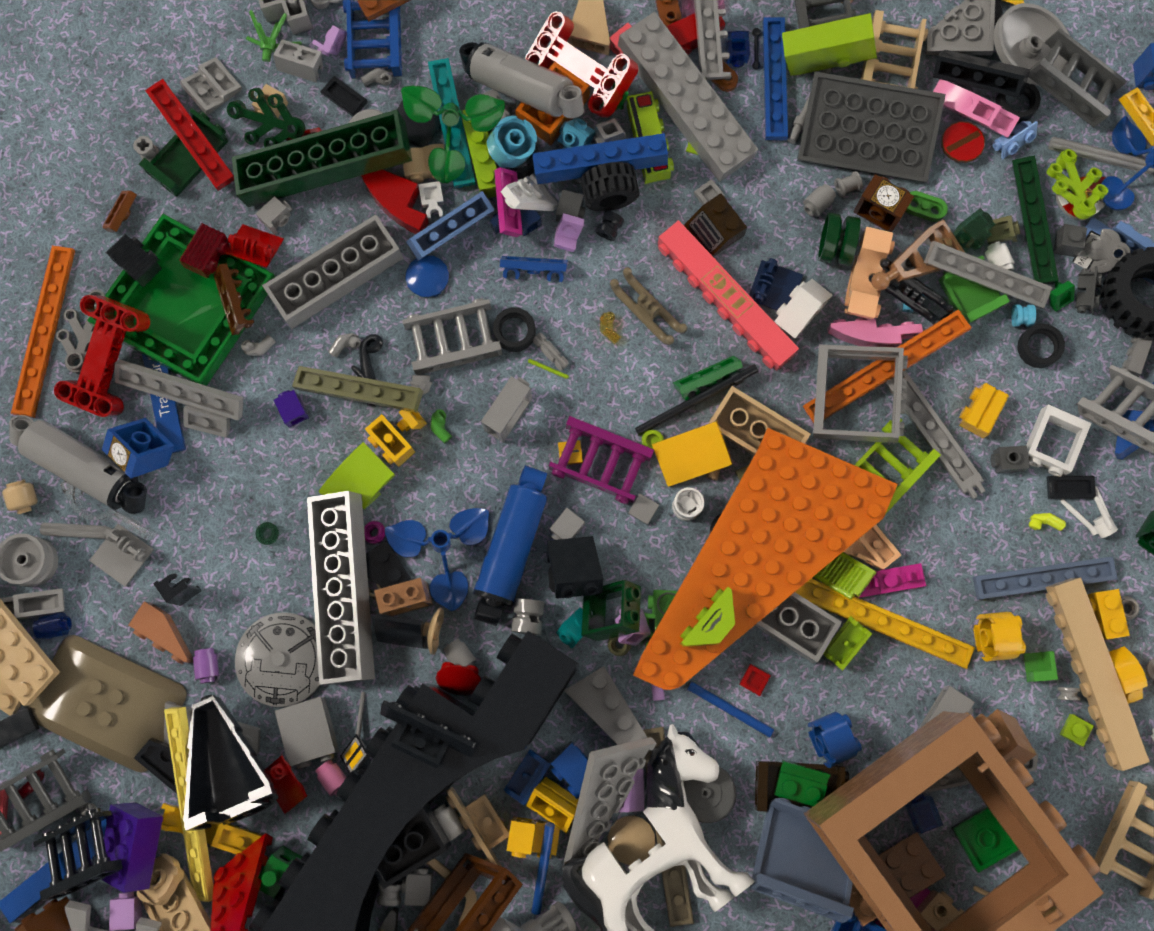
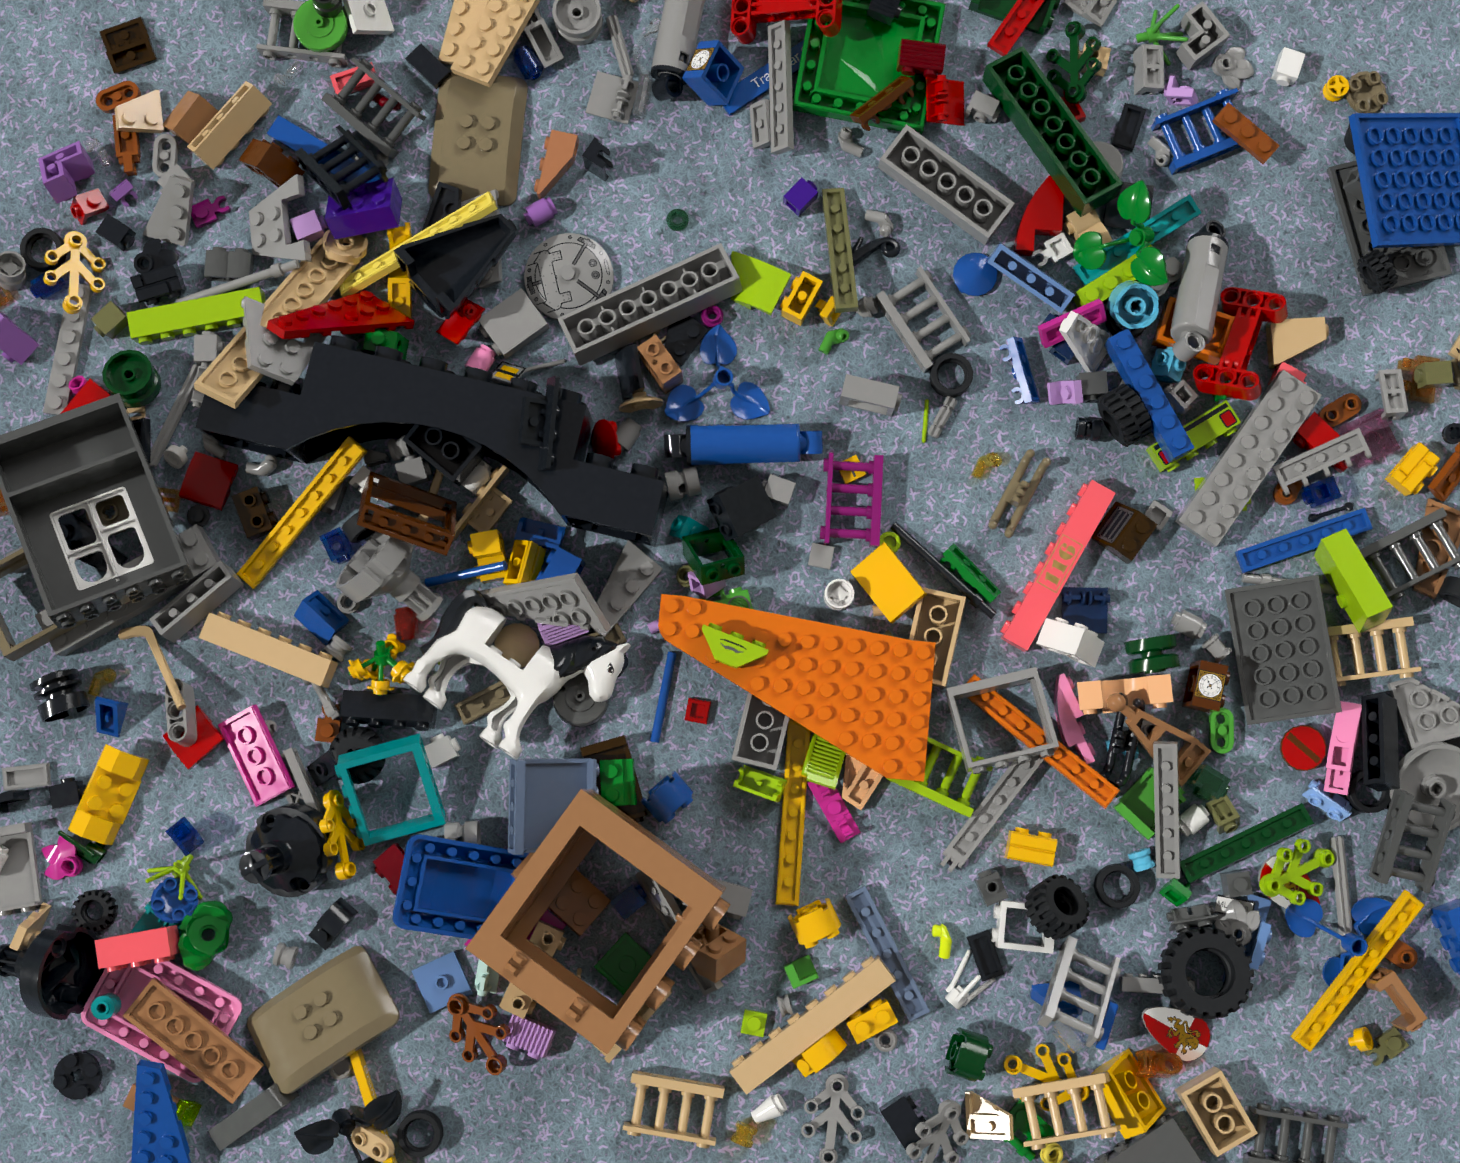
camera: 70 degrees right, 5 degrees up
(1051, 403) = (1057, 907): none -> black tyre

